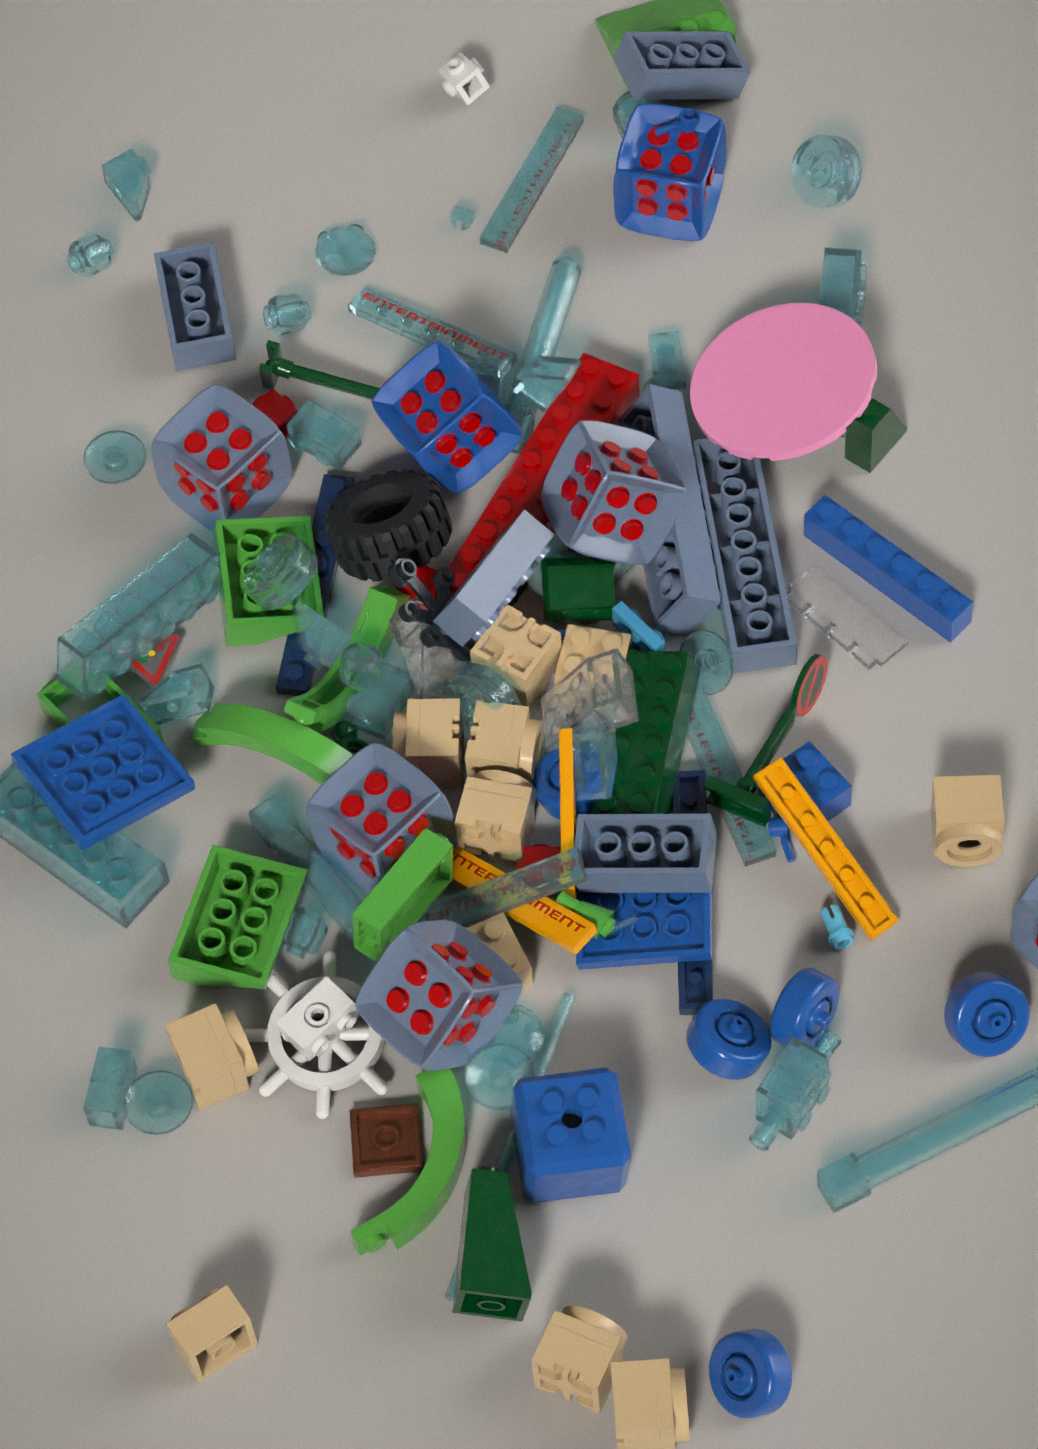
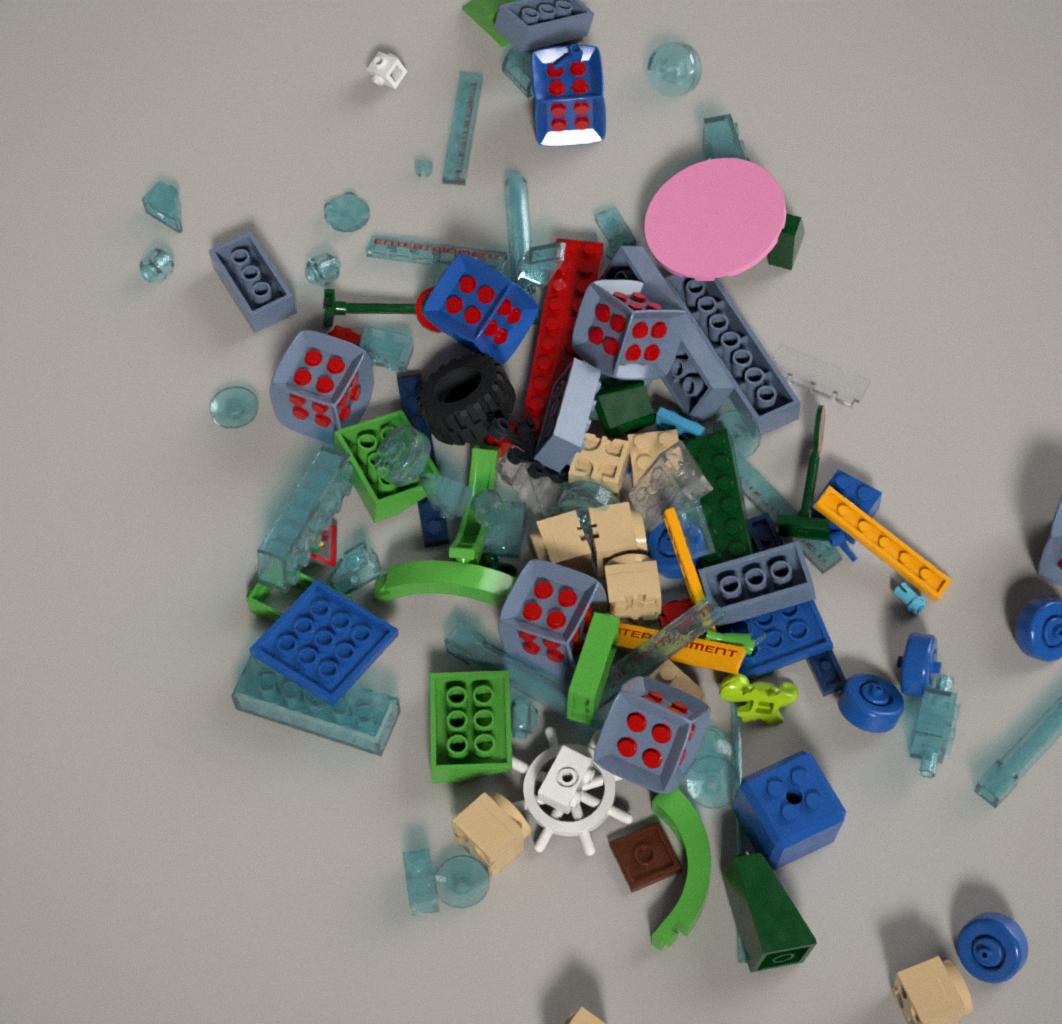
camera: 20 degrees left, 0 degrees up
(578, 1355) = (864, 975): tan piece -> none
(601, 993) = (761, 697): none -> lime animal
(888, 568) = (836, 332): blue brick -> none
(967, 819) = (973, 493): tan piece -> none

